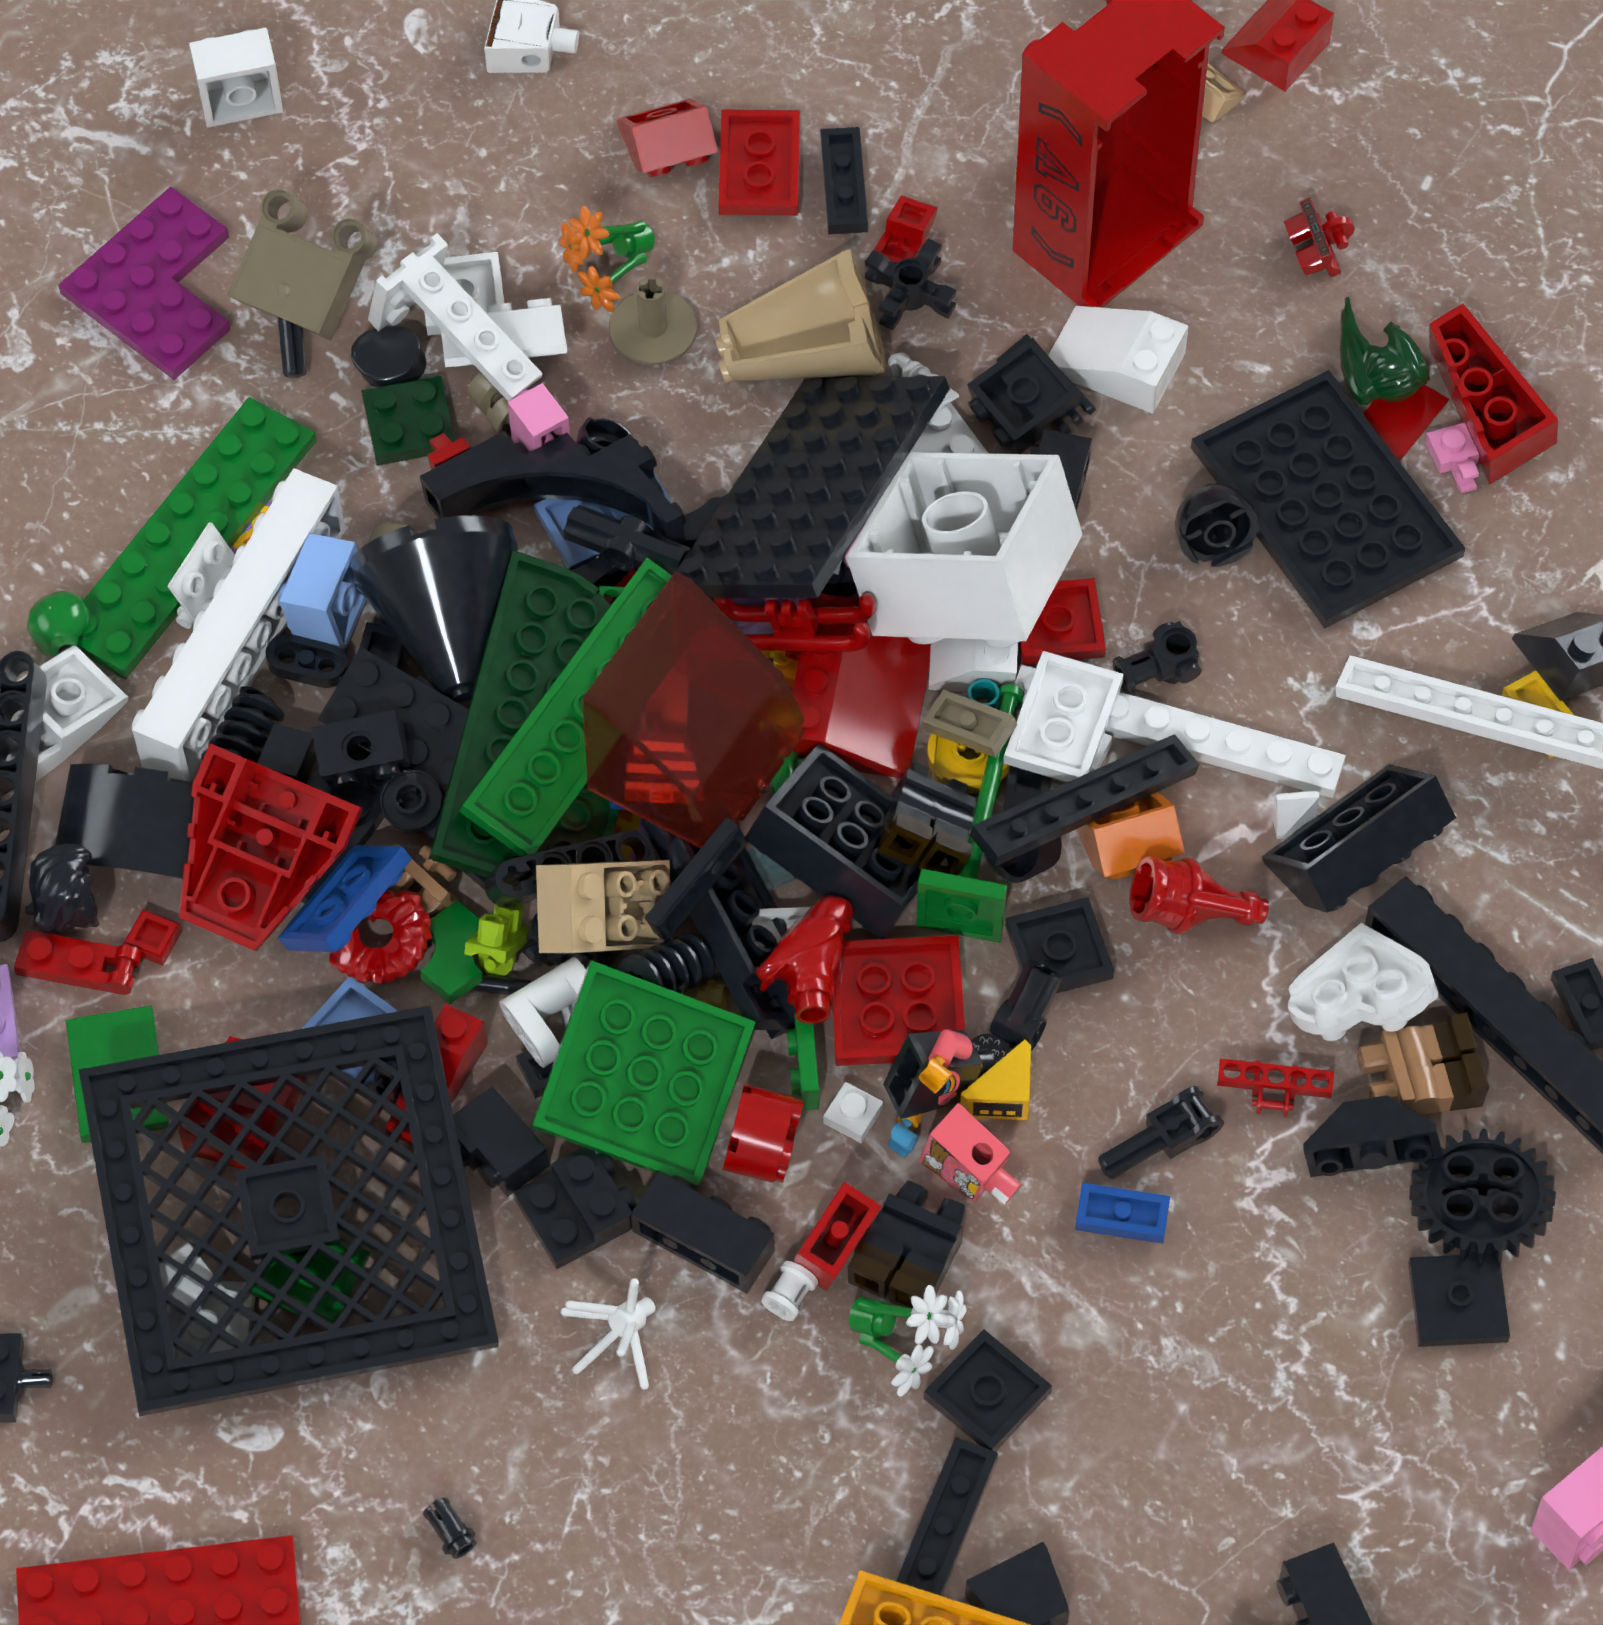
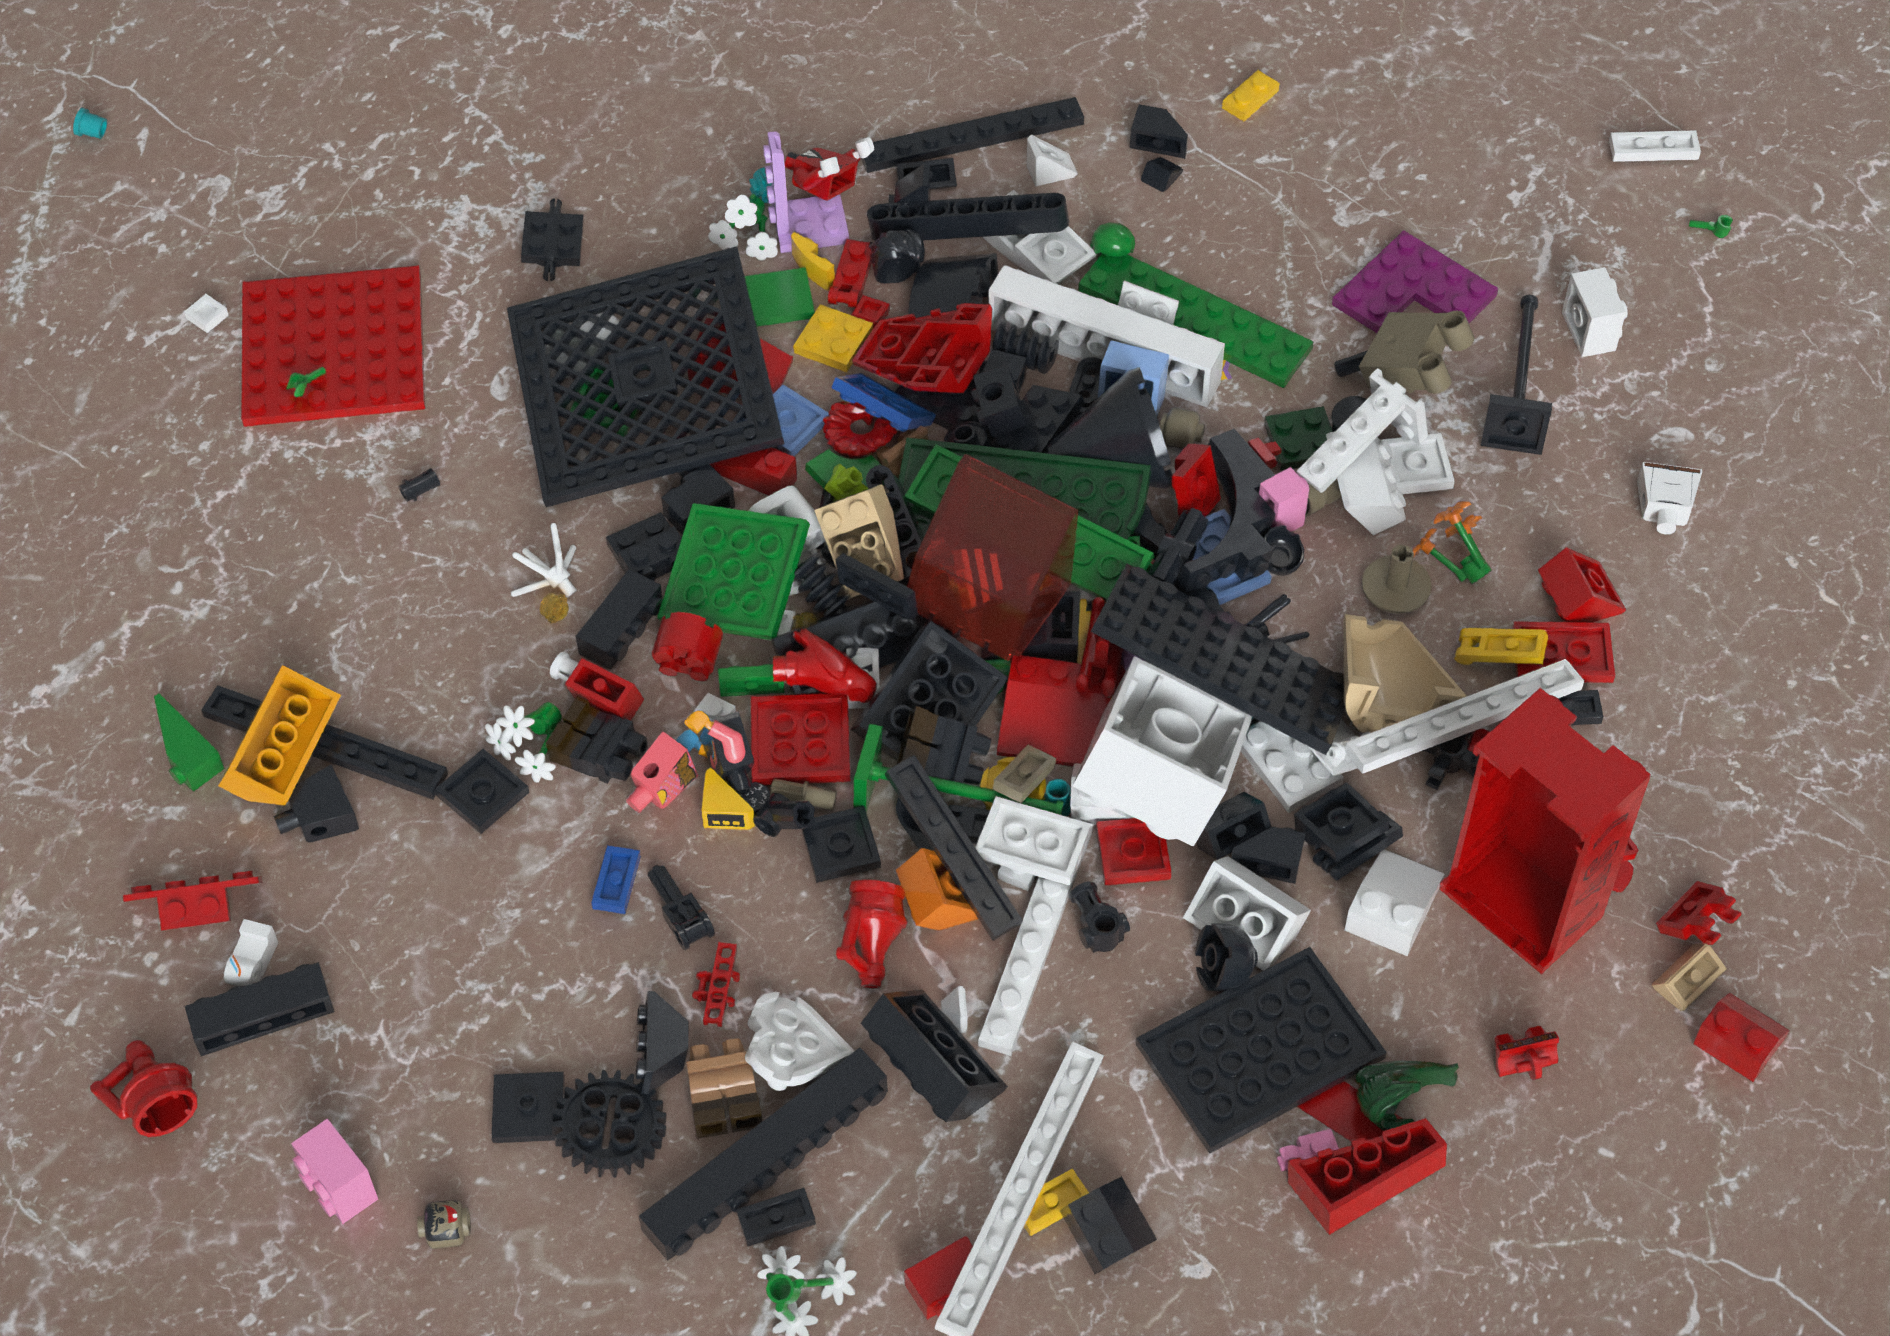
camera: 90 degrees right, 5 degrees down
(47, 1017) = (806, 255): none -> yellow slope
(198, 983) = (832, 338): none -> yellow plate
(415, 175) = (1516, 421): none -> black tile
(527, 524) = (1195, 479): none -> red plate
(680, 1320) = (554, 607): none -> clear yellow plate
(723, 476) = (1259, 620): none -> black plant
(761, 215) = (1501, 646): none -> yellow plate
(880, 253) = (1459, 717): none -> white plate
(984, 992) = (815, 795): none -> dark tan axle
(1138, 501) = (1244, 899): none -> white slope

